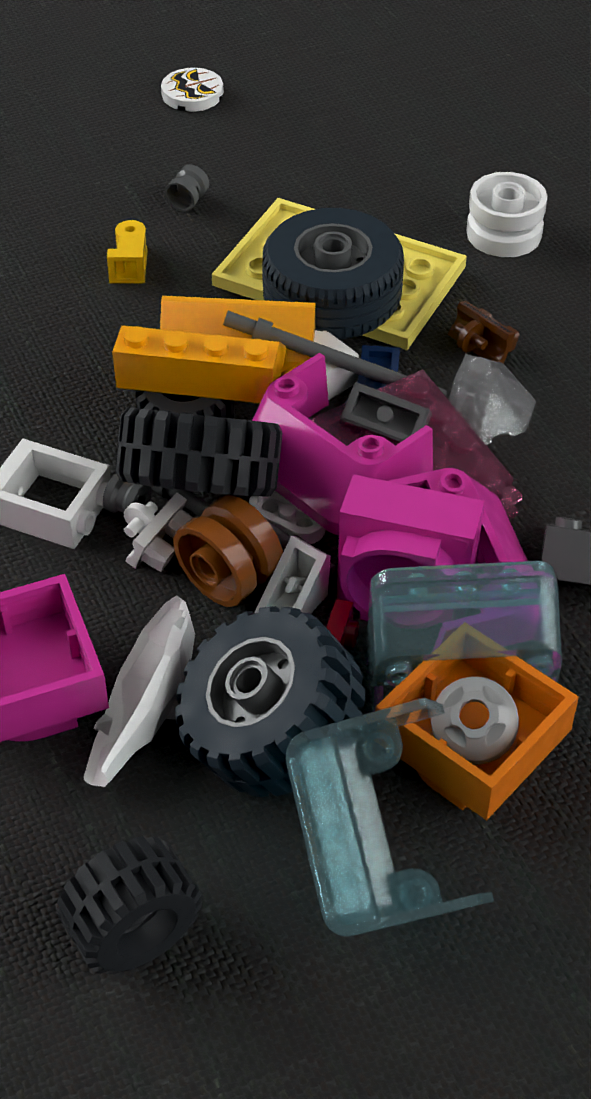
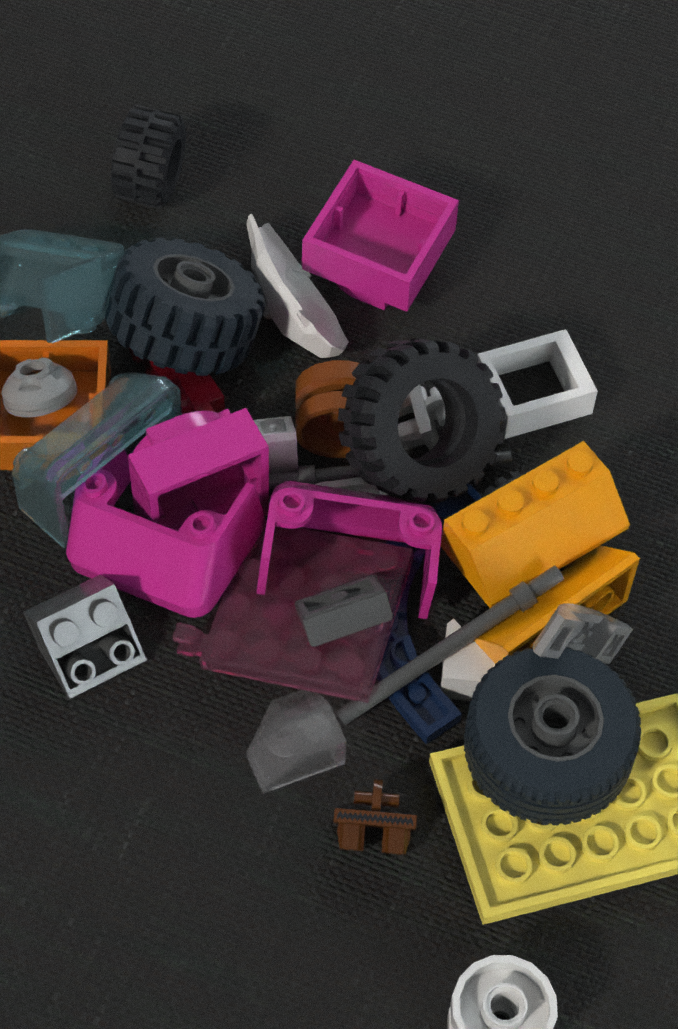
camera: 135 degrees right, 10 degrees up
(282, 269) = (581, 630): none -> light grey slope

